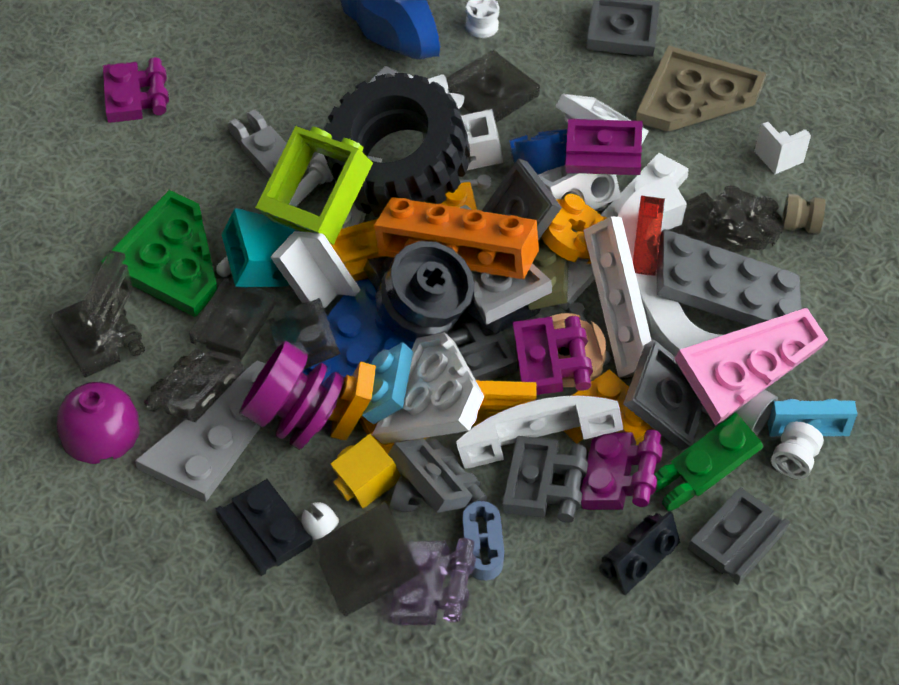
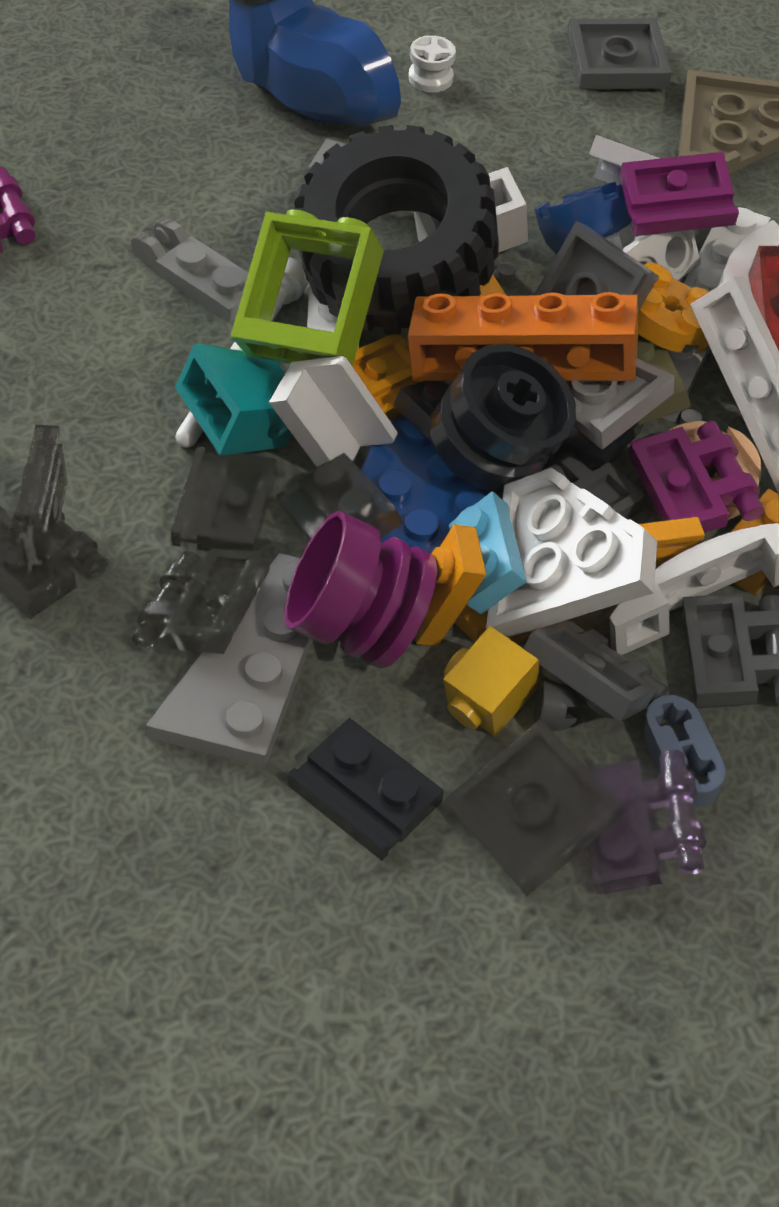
camera: 15 degrees left, 0 degrees up
(97, 422) = (71, 680): magenta cylinder -> none
(171, 254) = (108, 427): green plate -> none
(320, 521) = (447, 764): white hinge -> none
(493, 85) = (490, 138): clear smoke plate -> none

